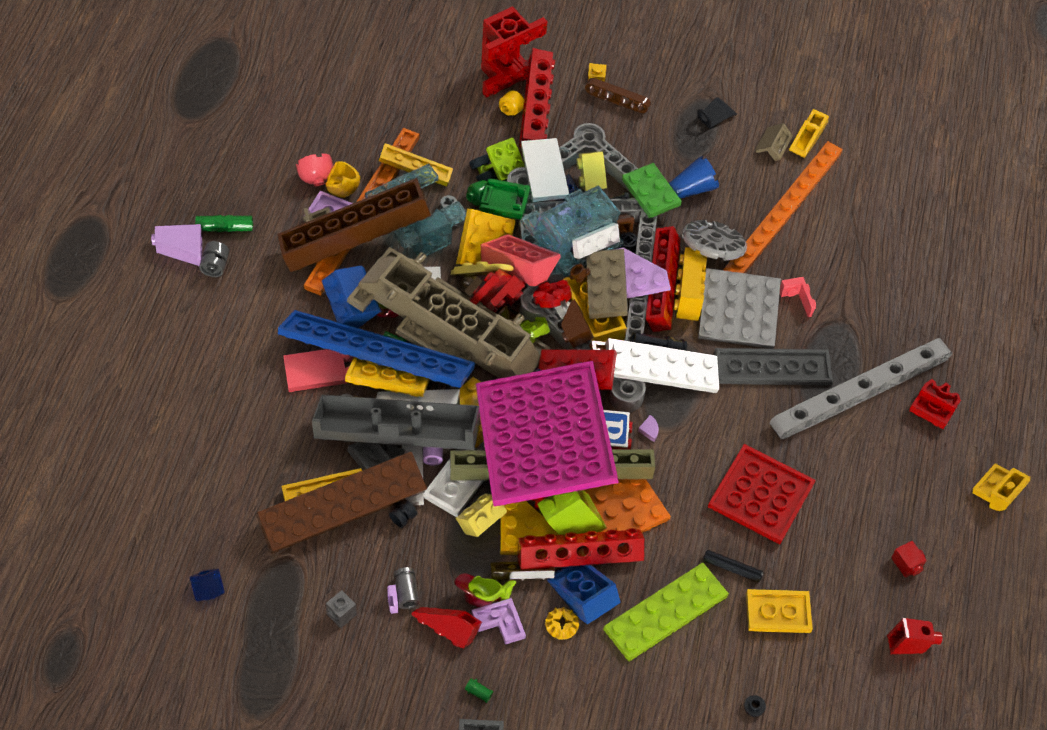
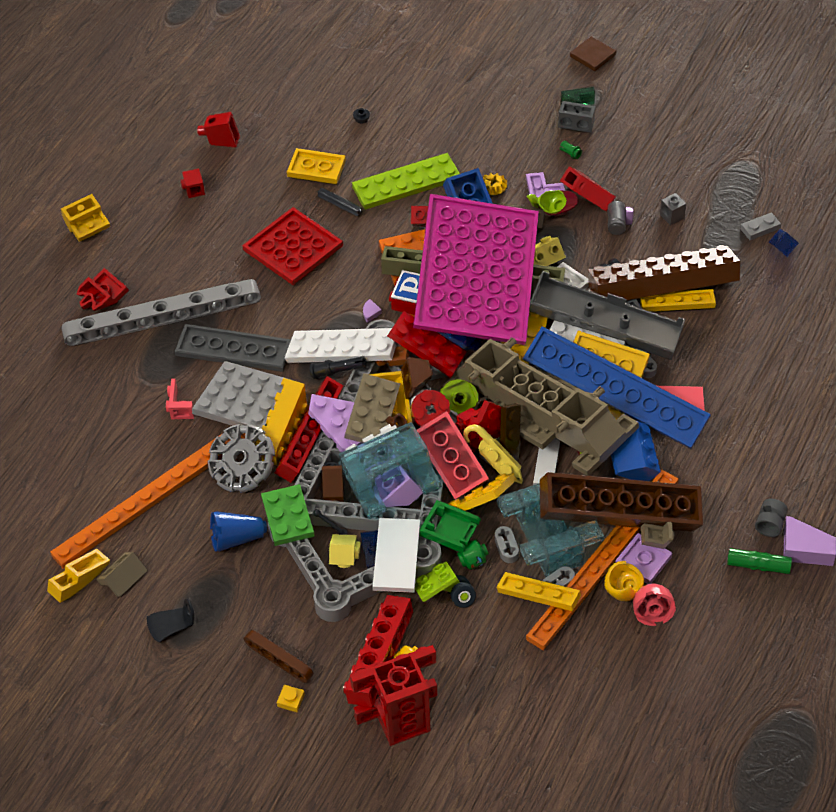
camera: 160 degrees left, 5 degrees down
(234, 611) = (760, 226): none -> light grey plate

